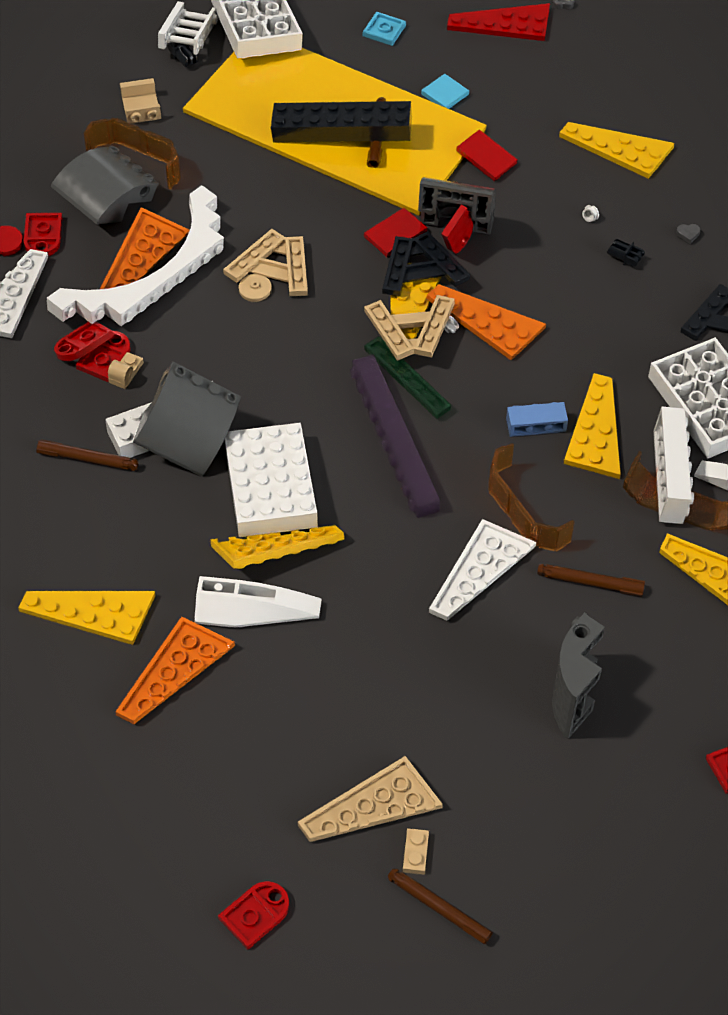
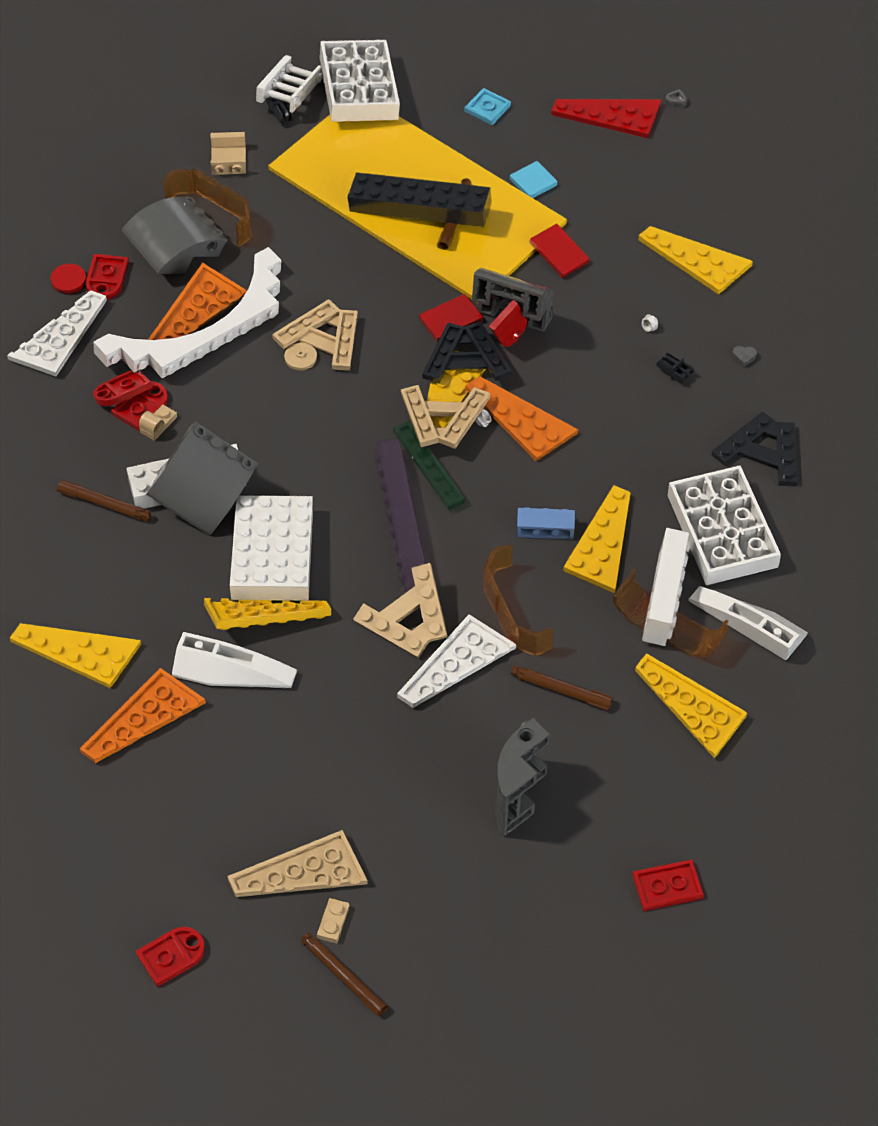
camera: 10 degrees right, 0 degrees up
(401, 538) = (387, 621): none -> tan plate

